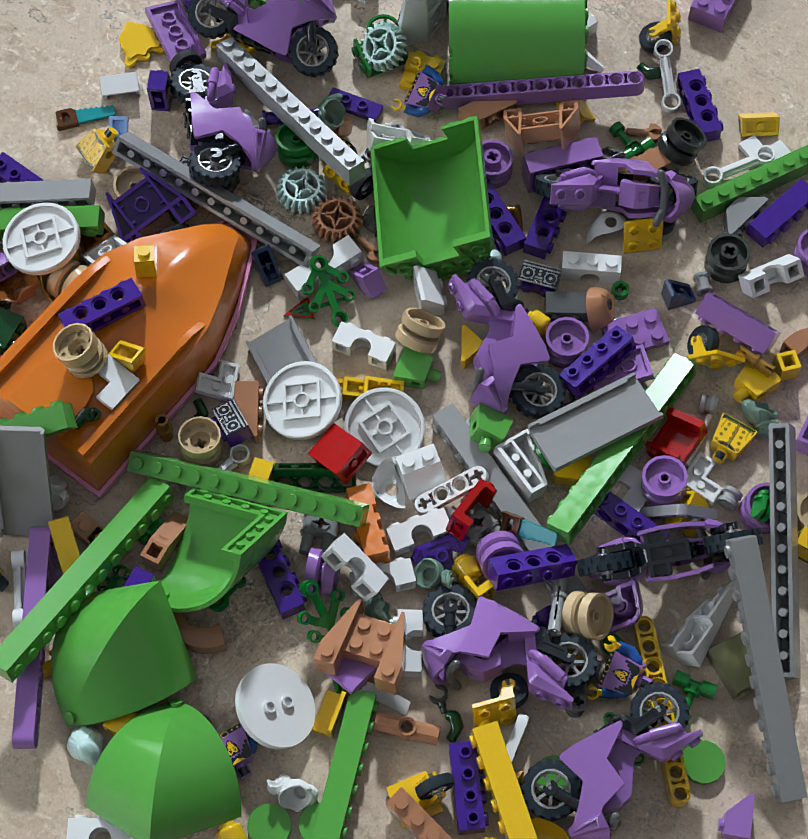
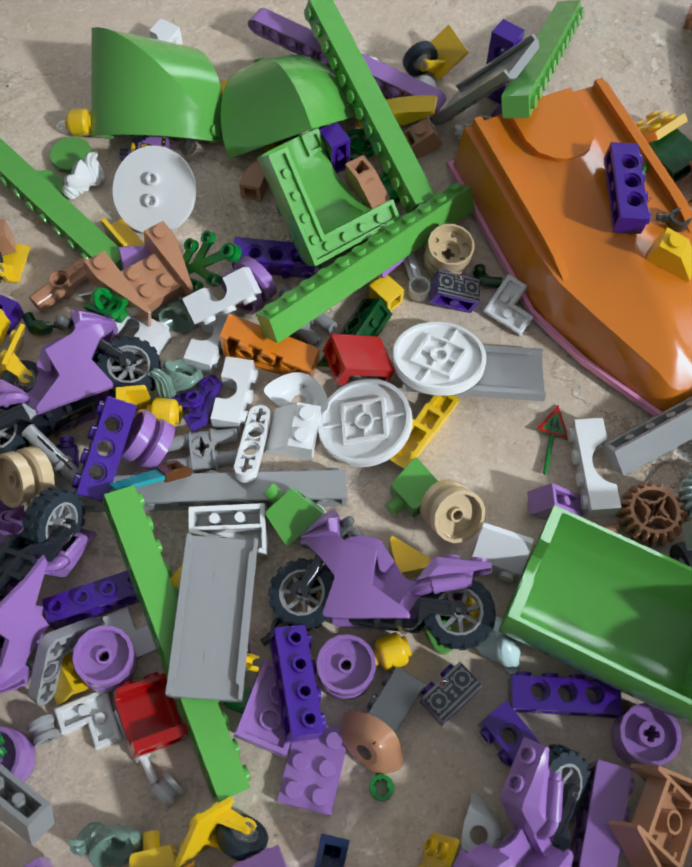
camera: 120 degrees right, 0 degrees up
(80, 350) = (583, 140): tan wheel -> none
(85, 744) = (228, 63): light aqua hair -> none
(87, 415) = (515, 135): dark green arm -> none
(109, 275) = (671, 222): none -> pearl dark grey piece
(120, 383) = (534, 175): white tile -> none
(129, 355) = (558, 189): yellow slope -> none
(164, 427) = (483, 232): pearl gold pin -> none
(247, 397) = (470, 315): nougat slope -> none
(266, 265) = (626, 412): dark blue slope -> none
(327, 288) = (562, 451): green plant -> none
(350, 337) = (491, 445): white arch -> none
(414, 662) = (107, 305): none -> green hips
(459, 522) = (200, 413): red panel -> none
(517, 215) = (562, 730): pearl gold bar -> none
(579, 263) = (430, 767): white arch -> none
(731, 439) = (107, 784): yellow torso -> none

